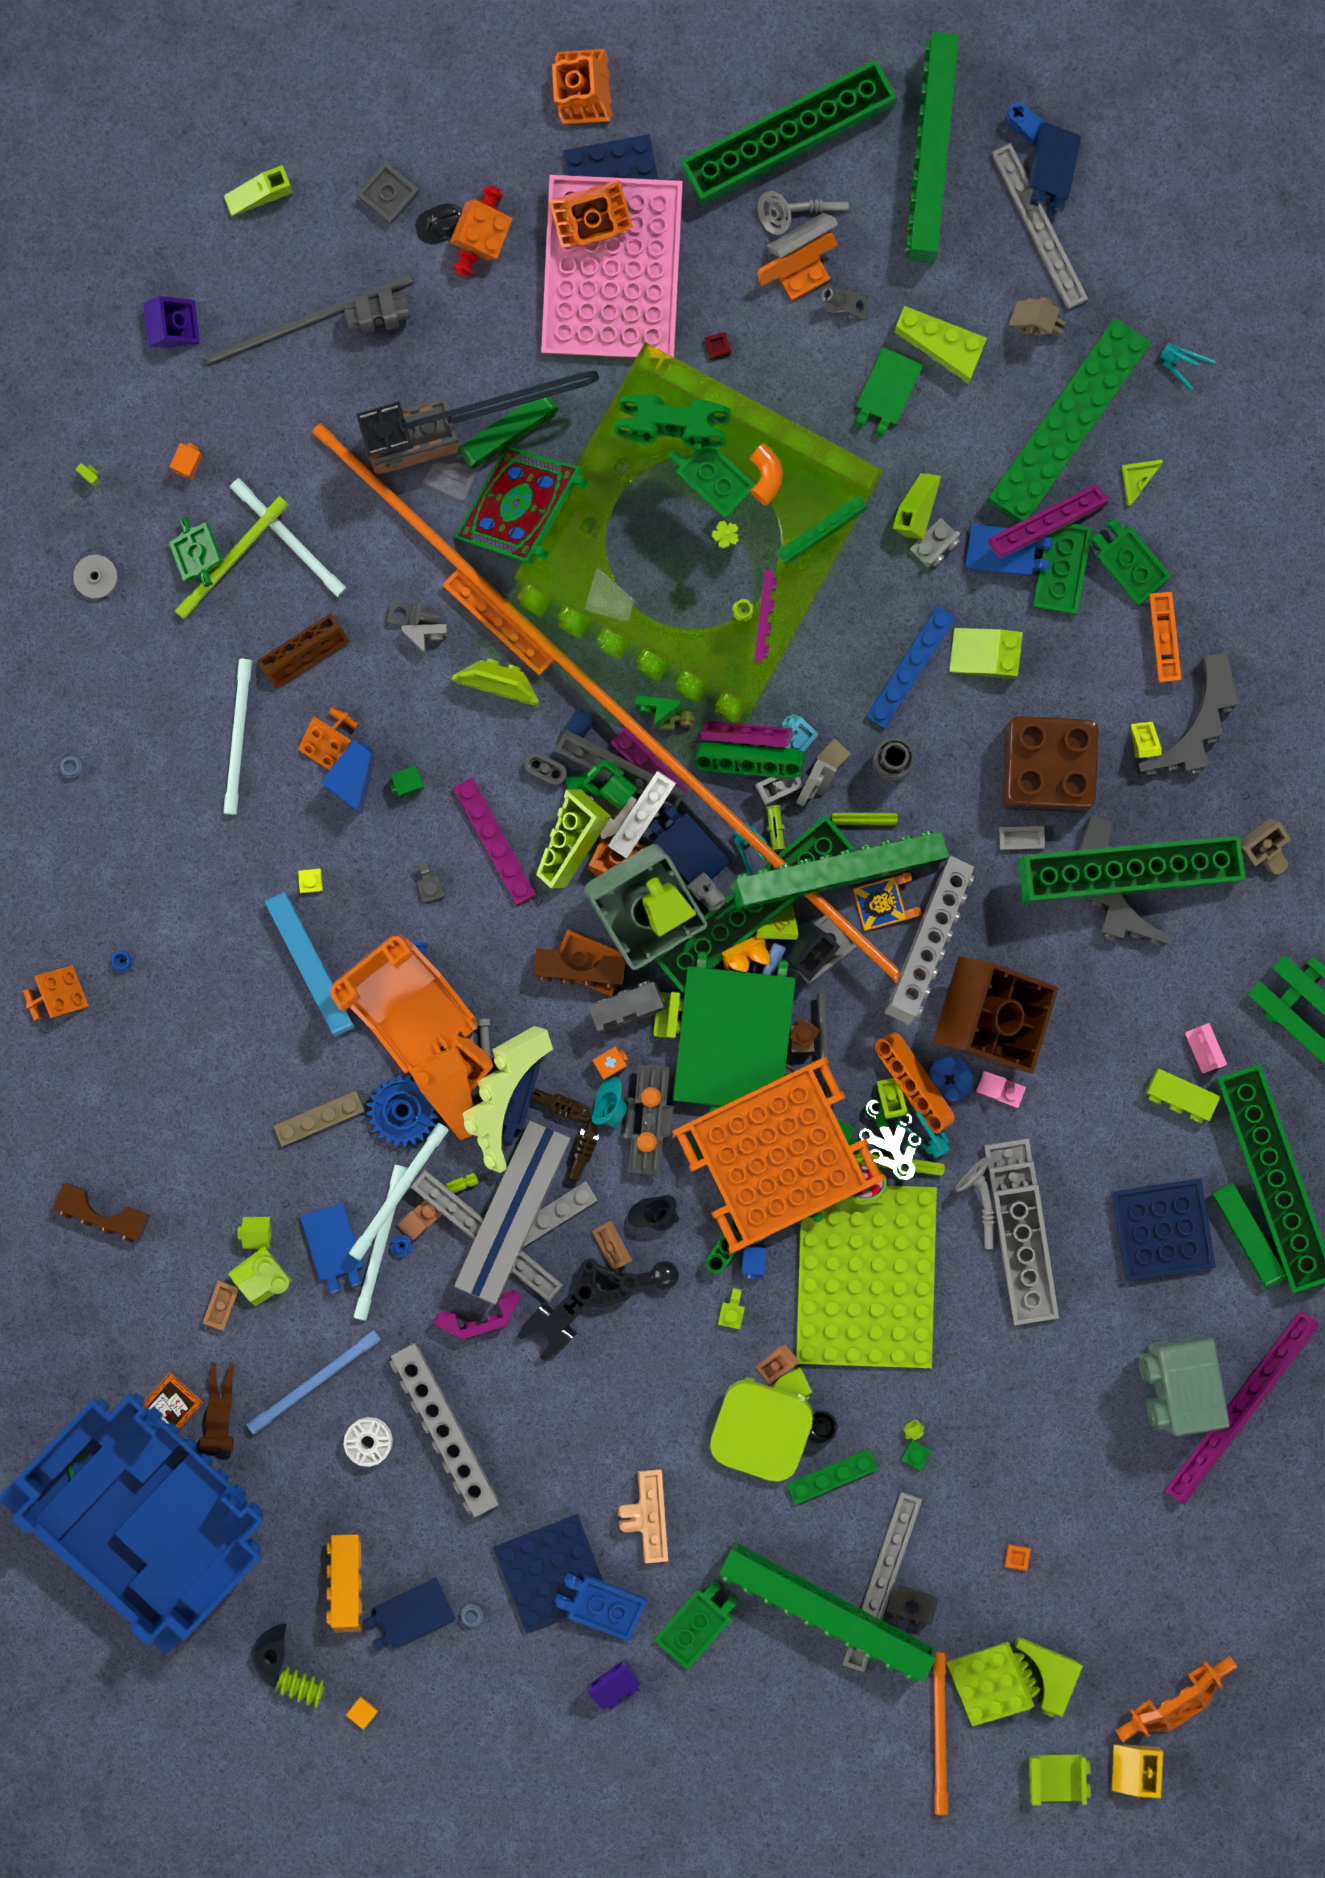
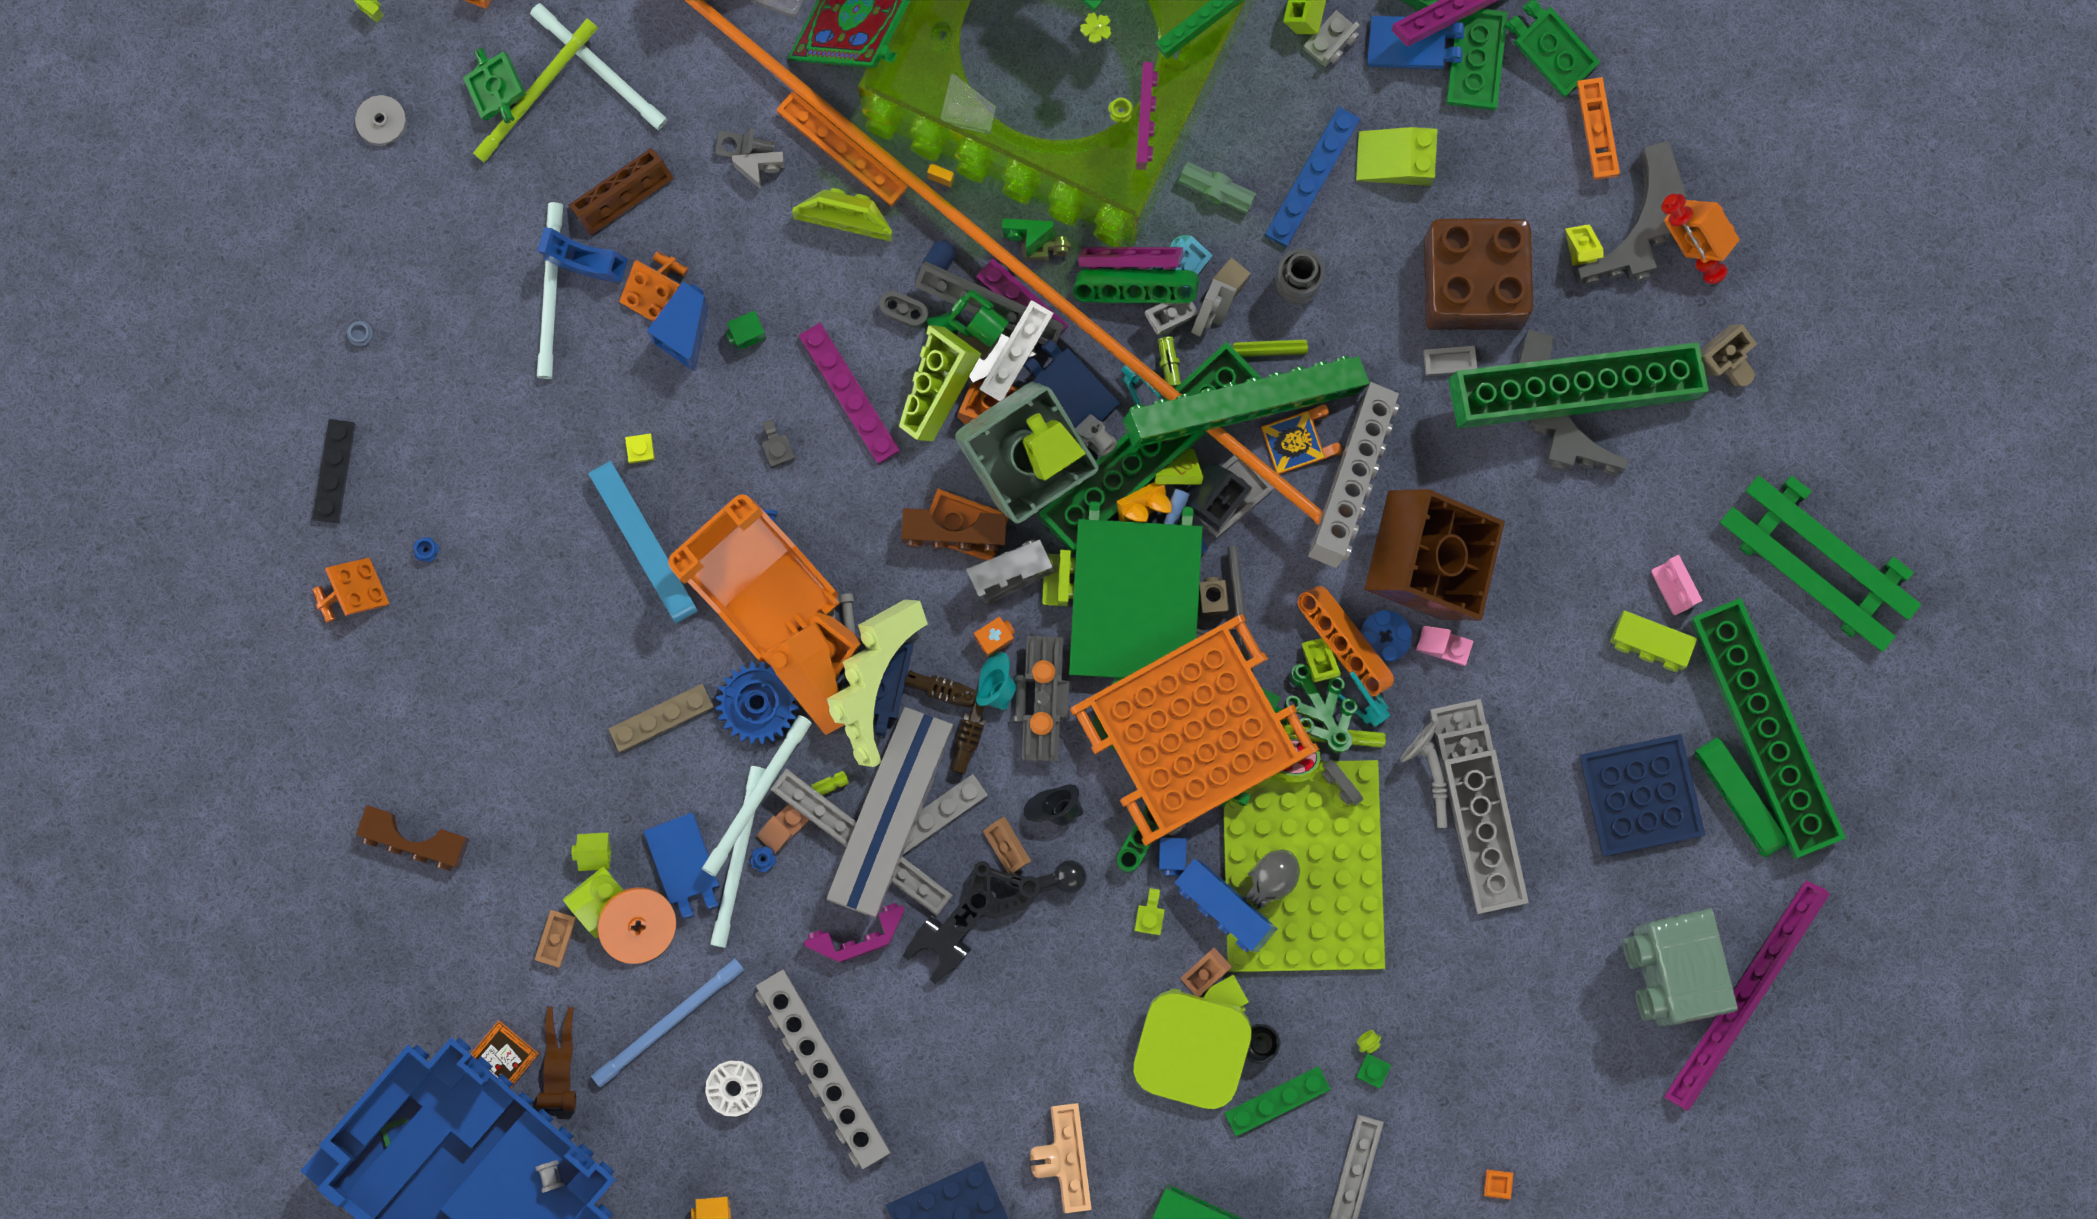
camera: 10 degrees left, 5 degrees down
(44, 887) = (333, 471): none -> black plate
(208, 1511) = (550, 1176): none -> light grey bush
(267, 710) = (580, 258): none -> blue arch
(279, 1287) = (623, 911): none -> orange piece
(584, 650) = (940, 175): none -> light orange tile
(797, 1308) = (1226, 906): none -> blue brick
(804, 1034) = (1216, 590): reddish brown plate -> none
(826, 673) = (1217, 187): none -> sand green piece
(840, 1285) = (1276, 875): none -> dark grey helmet
(897, 1200) = (1334, 775): none -> dark grey plate
(1249, 738) = (1701, 233): none -> orange brick

